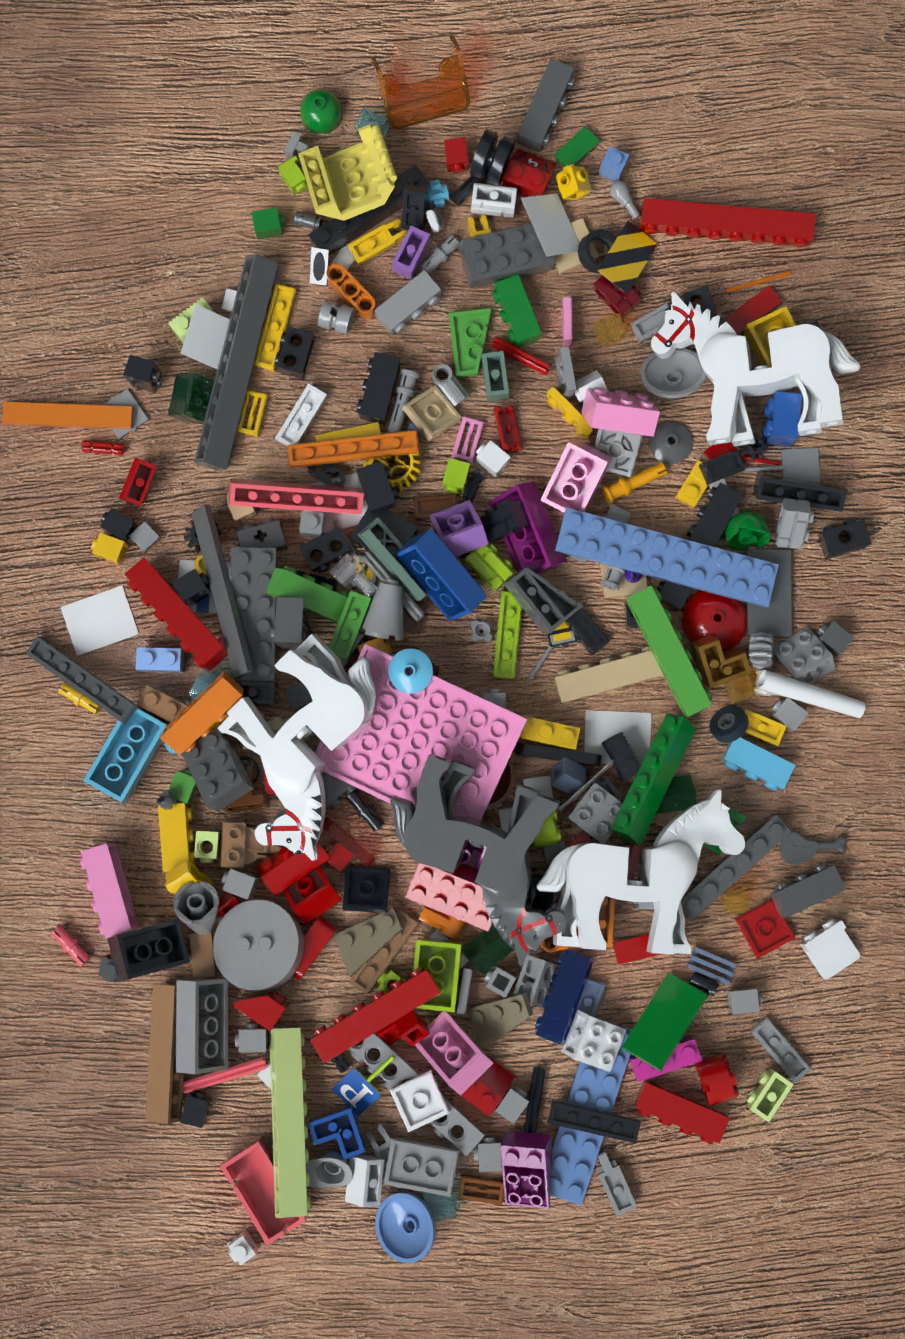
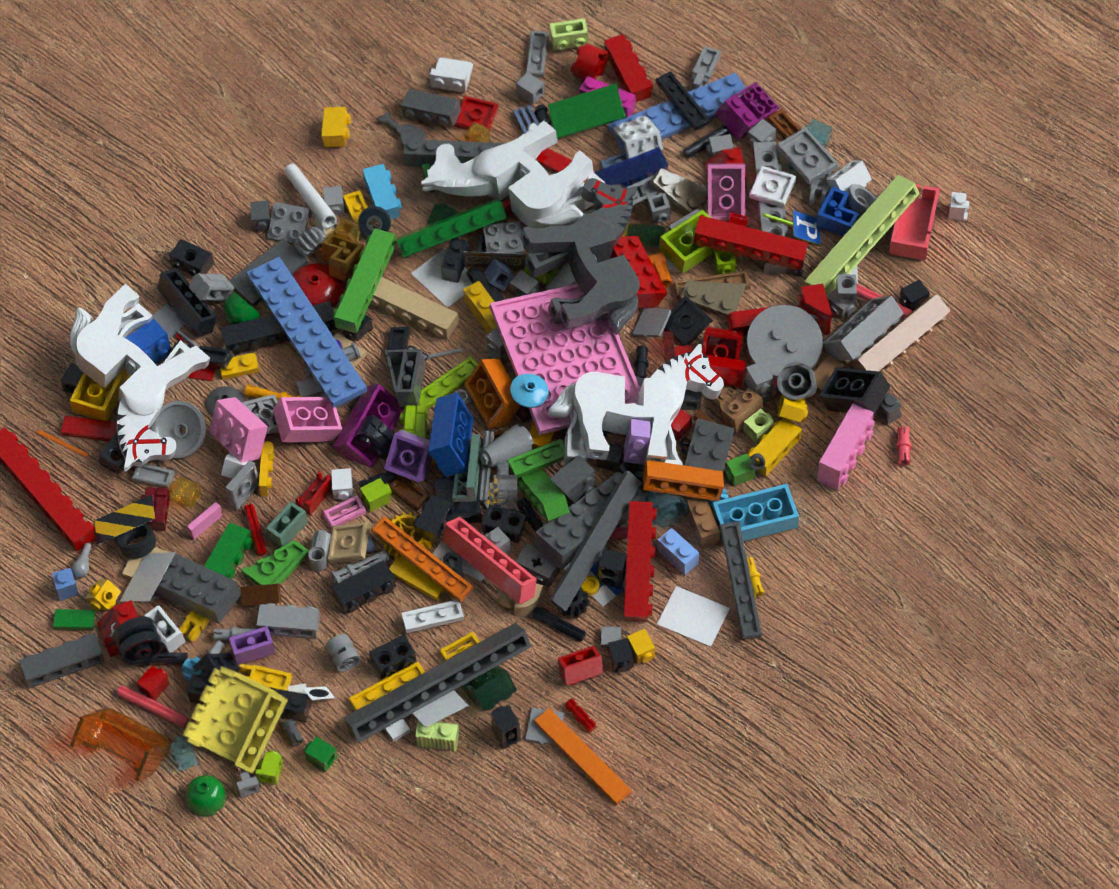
camera: 135 degrees left, 25 degrees down
(185, 510) = (559, 624): none -> black axle
(240, 1050) = (849, 294): none -> light grey brick
(272, 710) = (637, 441): none -> lavender brick
(348, 281) = (315, 652): orange beam -> none
(394, 861) = (652, 322): none -> light grey piece
(396, 1231) = (857, 135): medium blue dish -> none
(437, 140) = (152, 706): none -> coral axle
(452, 302) = (260, 594): none -> reddish brown tile
(453, 653) = (490, 391): none -> orange brick
(868, 788) = (335, 126): none -> yellow brick

